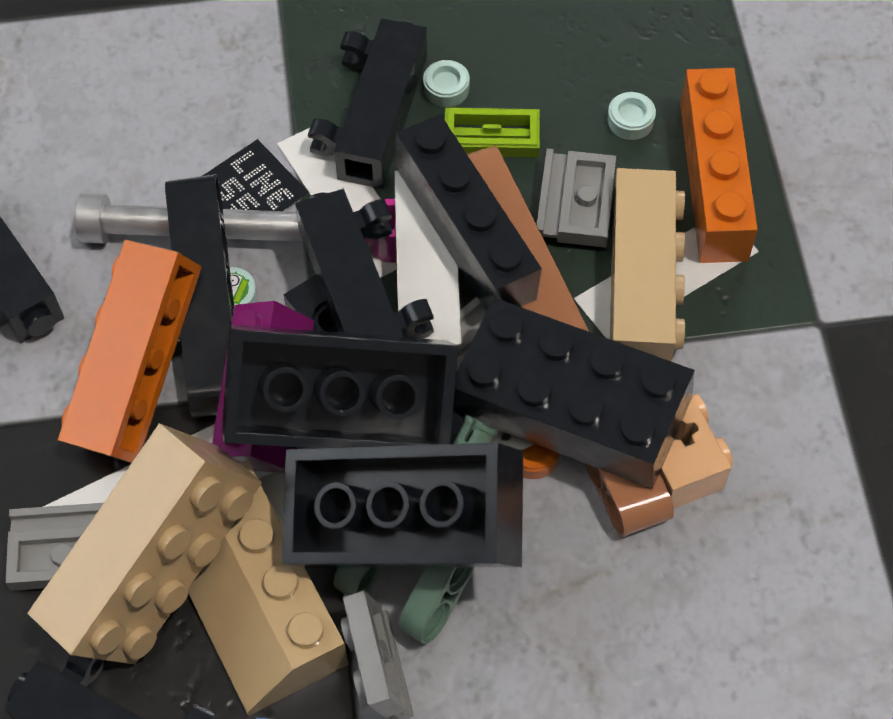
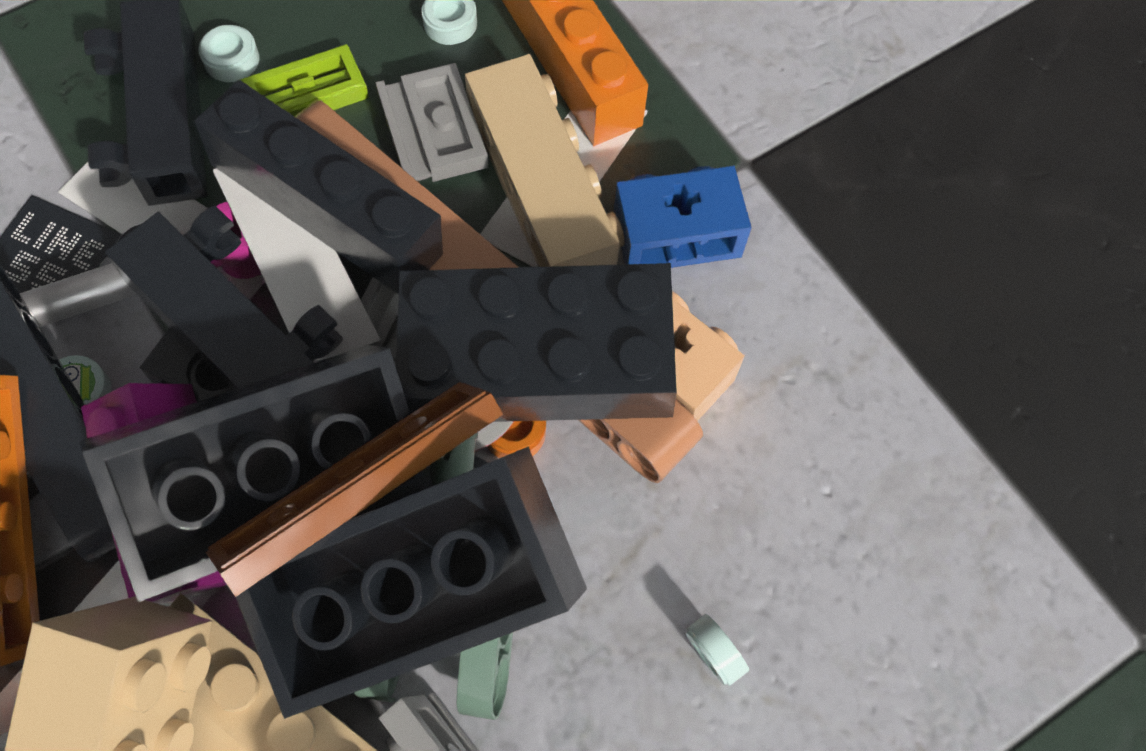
camera: 30 degrees left, 5 degrees up
(396, 425) = (351, 485): none -> dark orange tile
(606, 672) = (716, 650): none -> light aqua tile
(753, 365) = (683, 217): none -> blue brick

